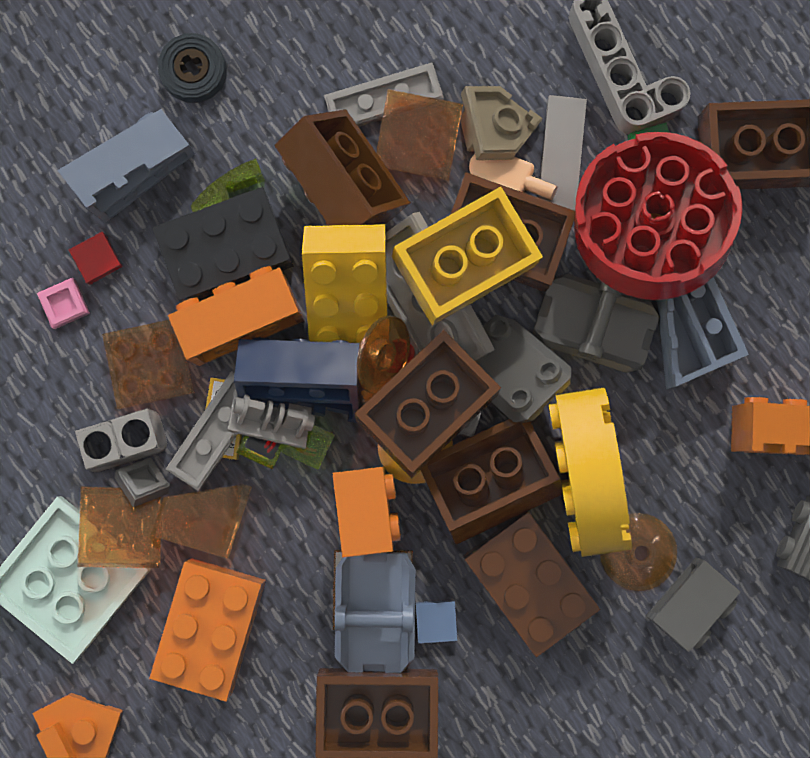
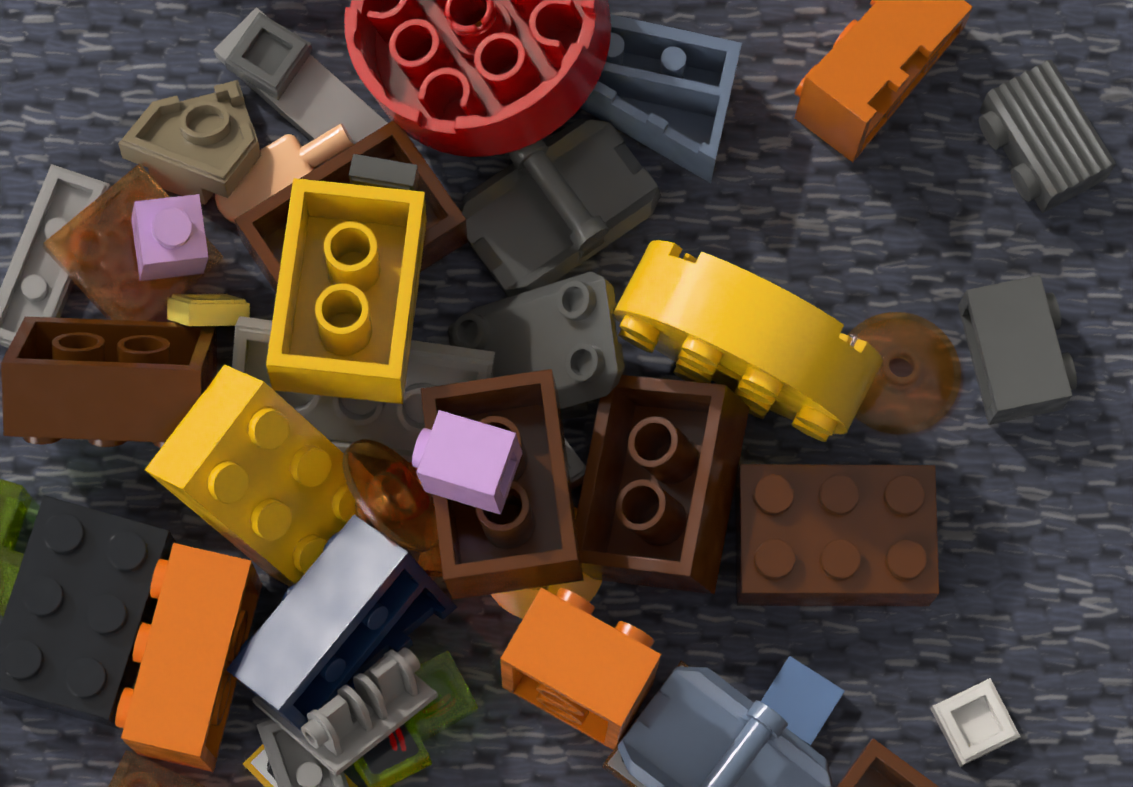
camera: 55 degrees left, 10 degrees down
(414, 193) = (206, 309): none -> light yellow tile
(419, 382) = (467, 461): none -> lavender brick
(433, 147) = (169, 237): none -> lavender brick
(489, 715) = (975, 722): none -> white tile
(539, 230) = (383, 173): none -> dark grey tile
(565, 124) = (268, 56): none -> dark grey tile

